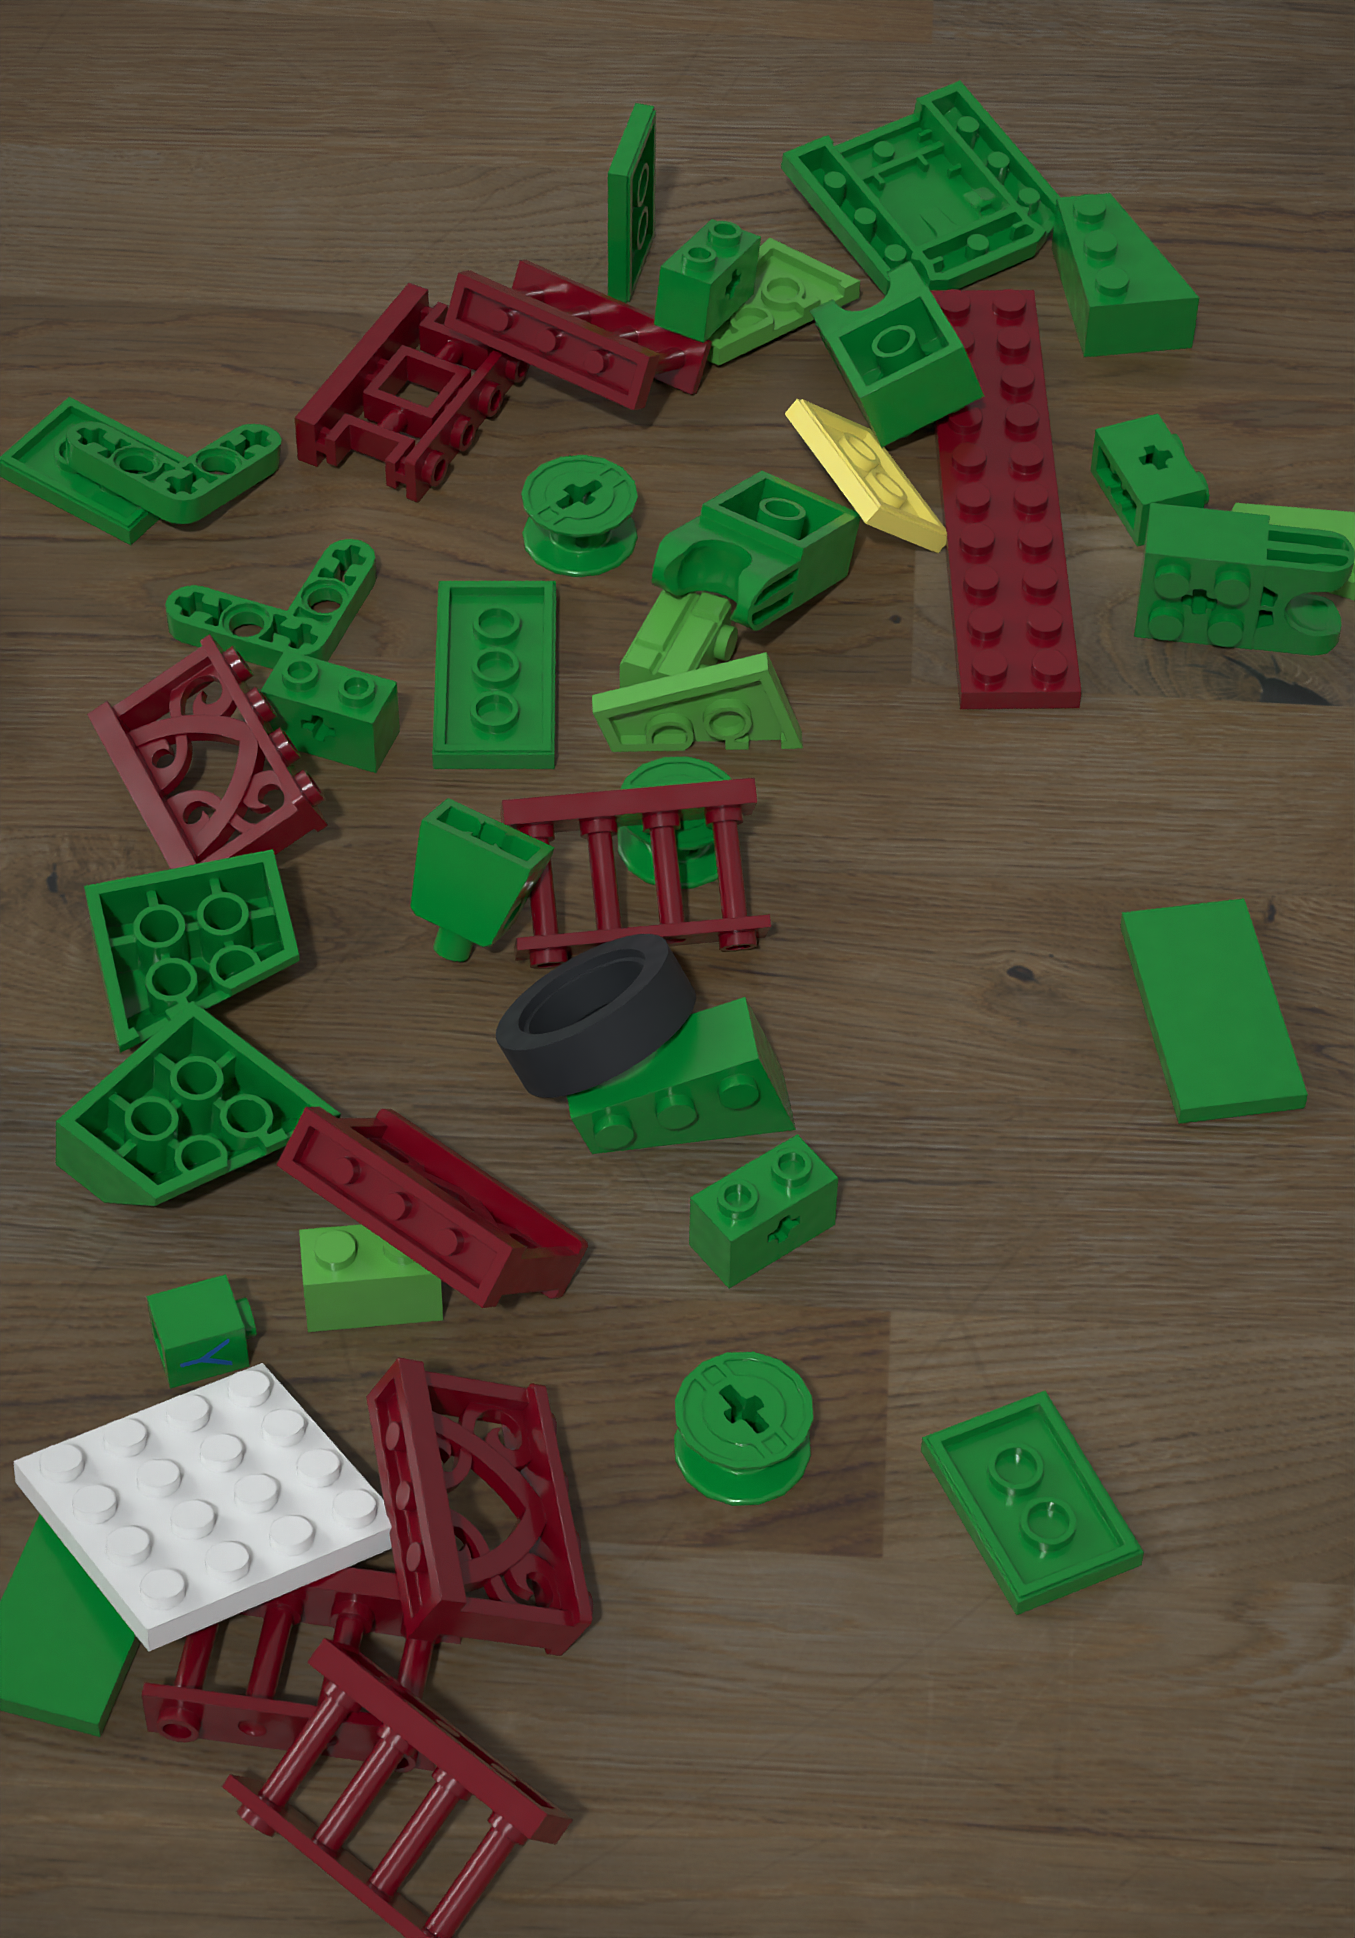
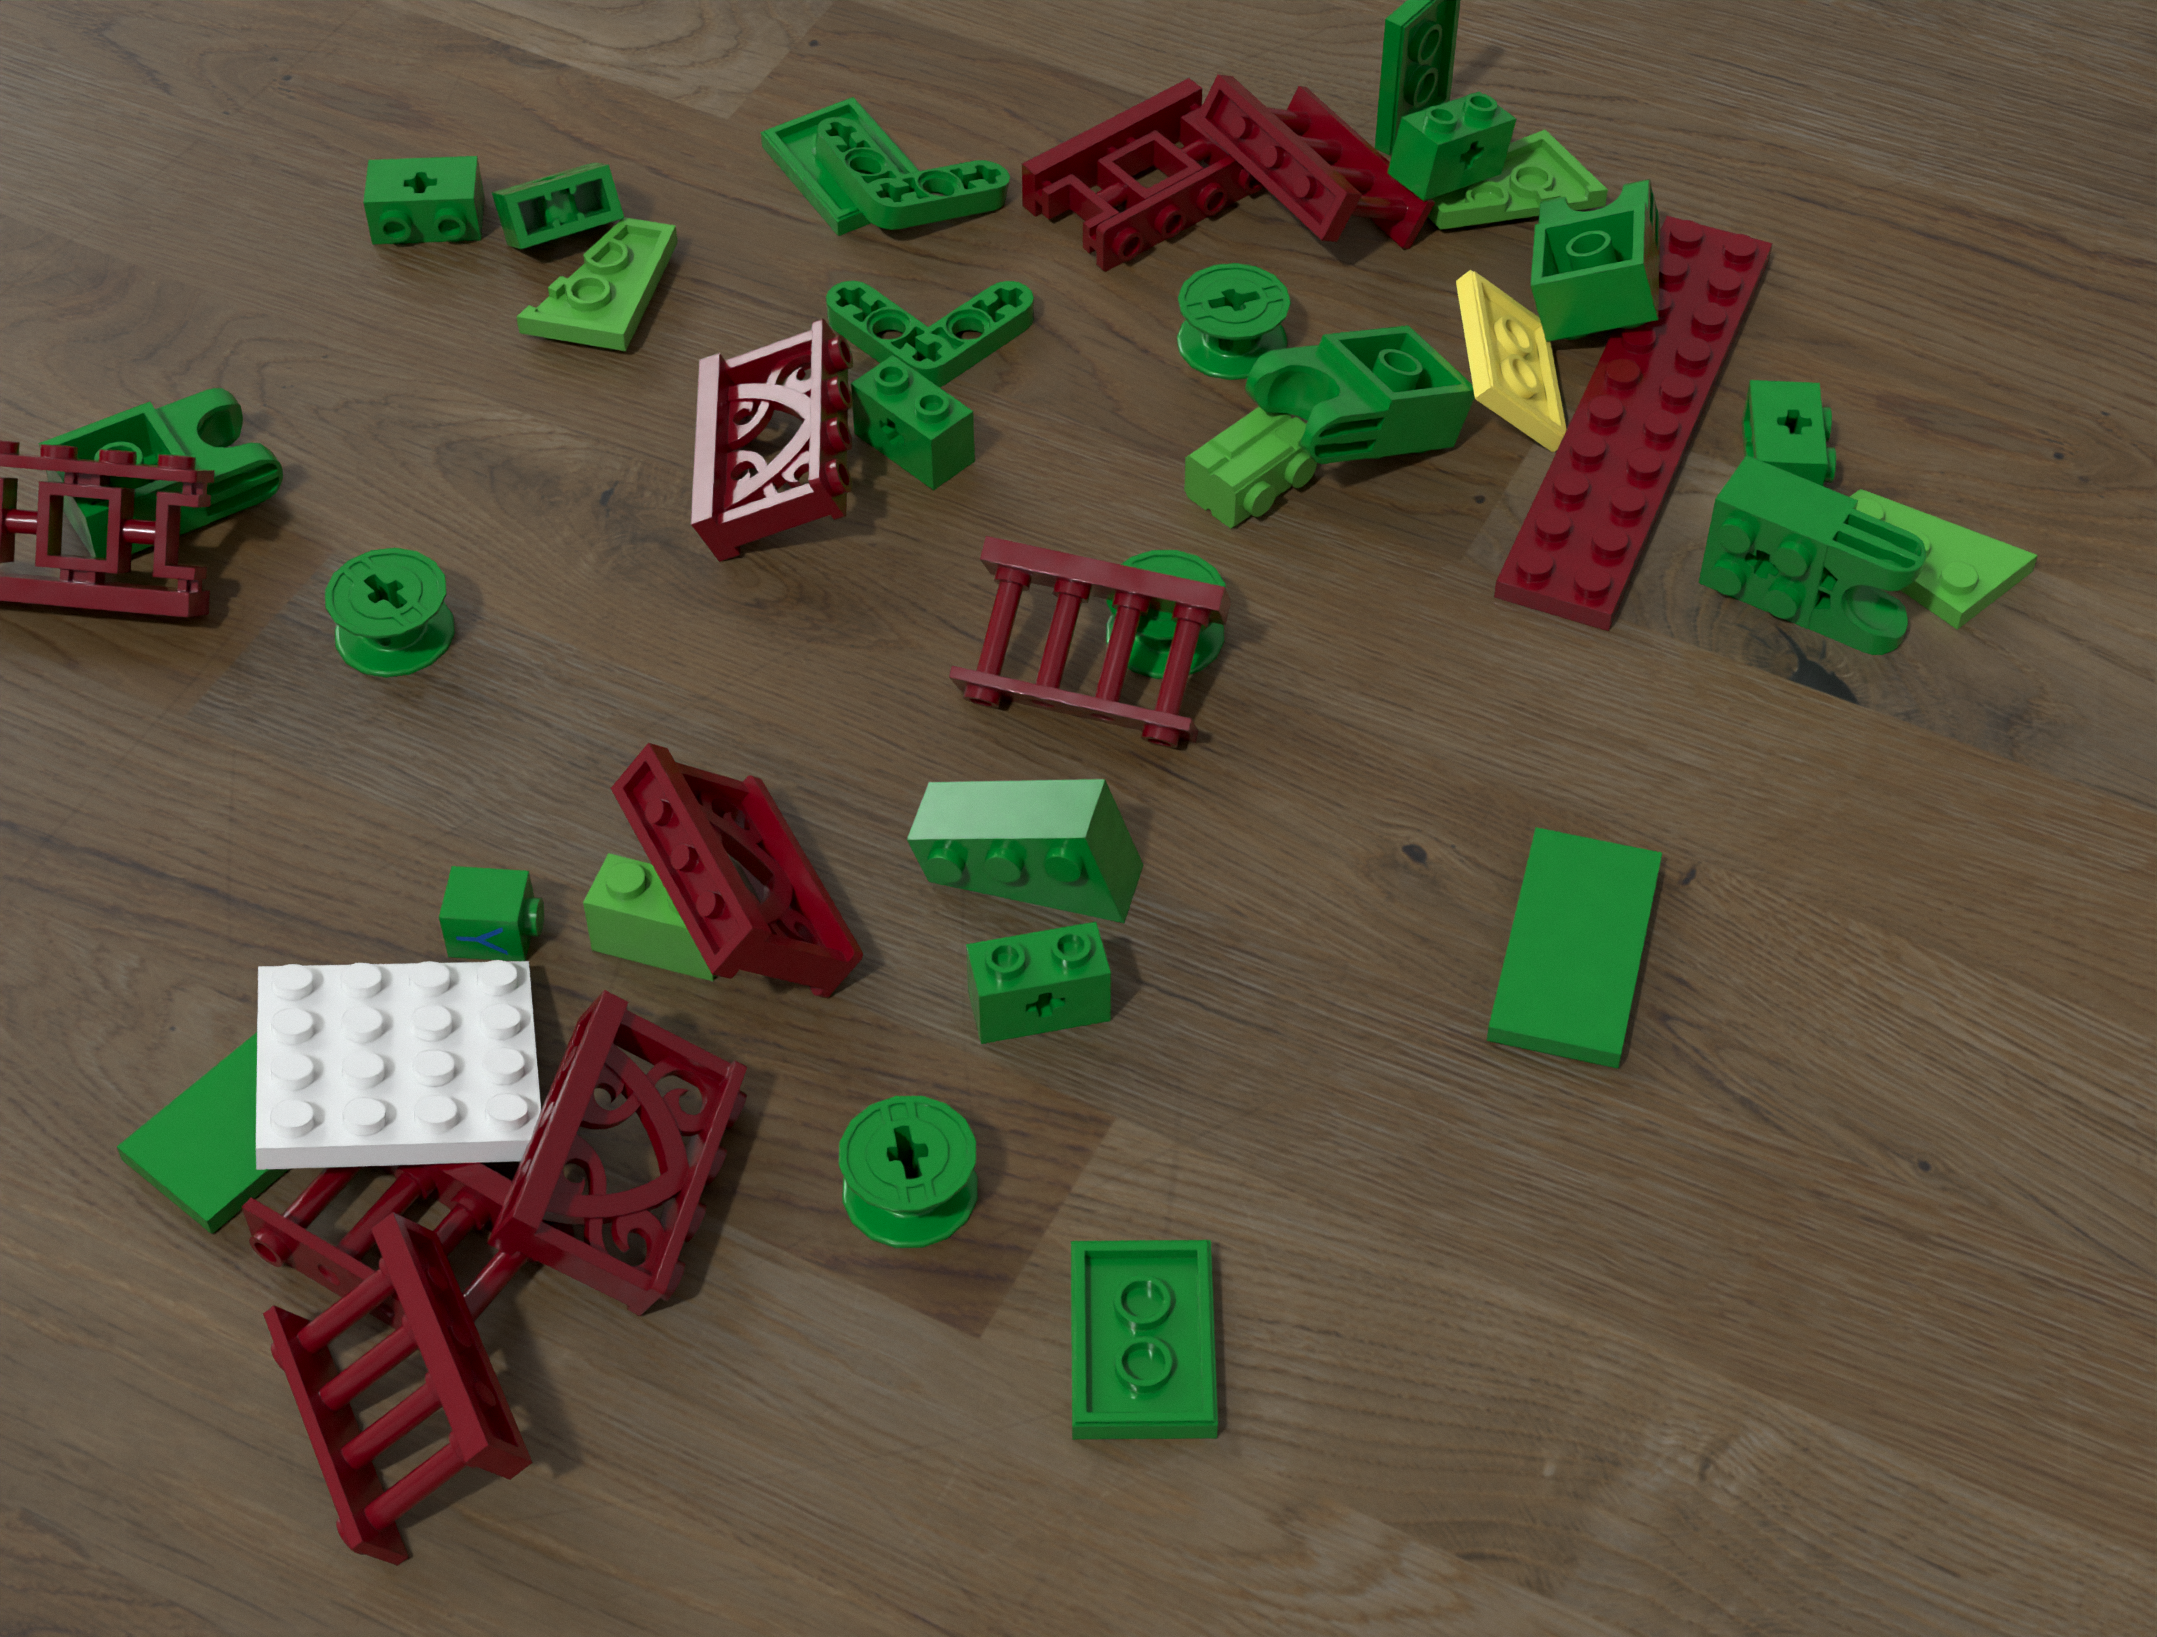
camera: 25 degrees right, 0 degrees up
(180, 1114) = (572, 716): green wedge -> none
(187, 938) = (668, 574): green wedge -> none
(472, 877) = (936, 597): green torso -> none
(495, 675) = (1083, 438): green tile -> none
(596, 1016) = (974, 755): black tyre -> none
(713, 703) = (1242, 515): bright green wing -> none
(929, 192) = (1720, 132): green wedge -> none
(1118, 281) = (1856, 258): green wedge -> none

